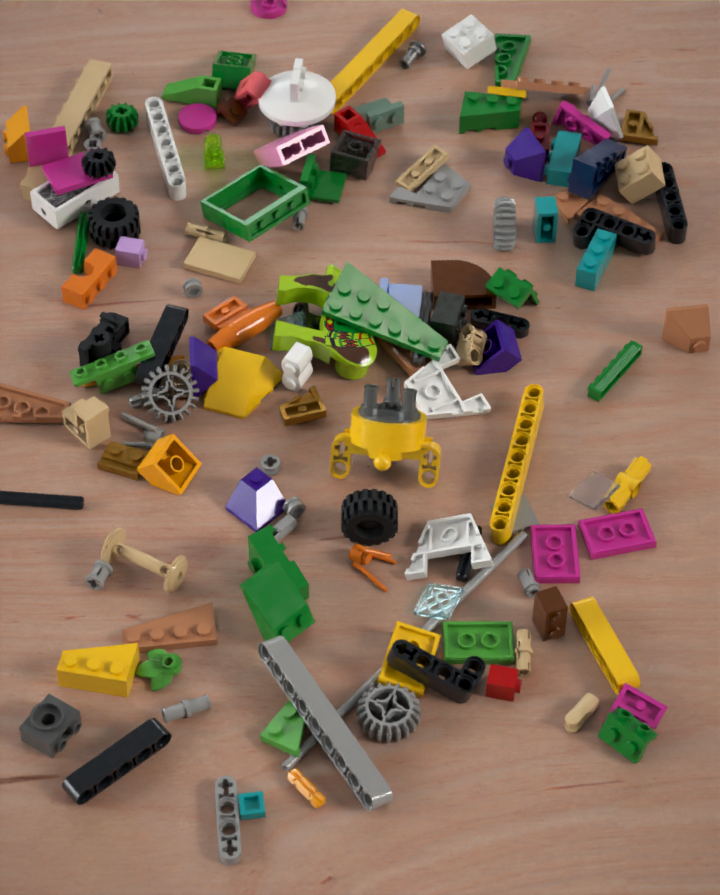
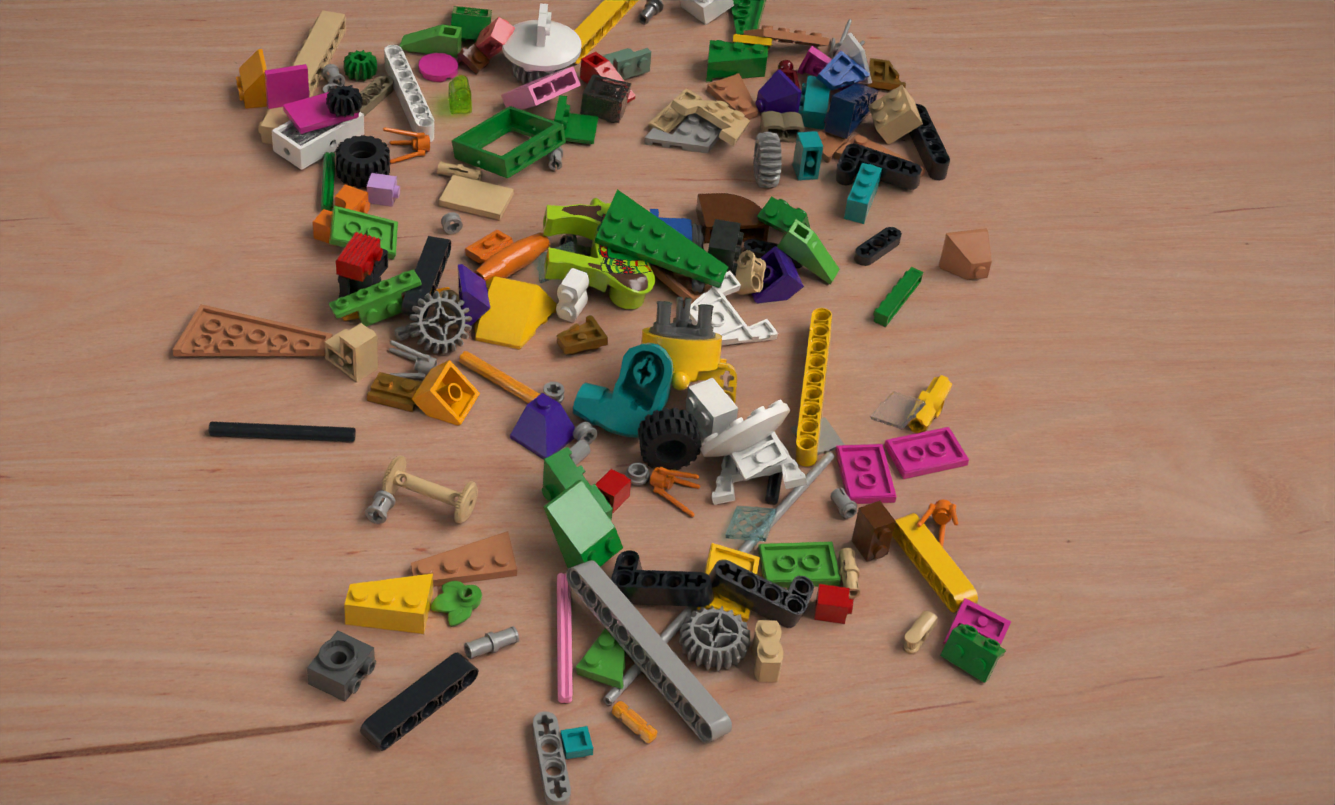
camera: 10 degrees left, 5 degrees down
(96, 329) = (359, 257): none -> red brick
(106, 295) = (347, 222): none -> bright green tile
(140, 140) = (382, 87): none -> dark tan beam
(170, 201) = (420, 143): none -> orange plant
(221, 448) = (498, 377): none -> light orange axle
(252, 709) = (564, 640): none -> bright pink axle
(313, 564) = (614, 488): none -> red brick
(338, 544) = (638, 473): none -> light grey plate
(341, 662) = (660, 587): none -> black beam
(344, 470) = (639, 391): none -> teal piece
(412, 492) = (710, 407): none -> white brick
(435, 726) = (767, 651): none -> tan brick
(444, 524) = (751, 441): none -> white bracket
(463, 172) = (718, 113): none -> tan wing
(484, 151) = (735, 94): none -> nougat wing
(525, 185) = (784, 124): none -> dark tan brick
(531, 324) = (807, 249): none -> bright green slope
(591, 128) = (842, 72): none -> blue wing
(606, 308) = (861, 254): none -> black beam
(620, 598) = (942, 513): none -> orange plant

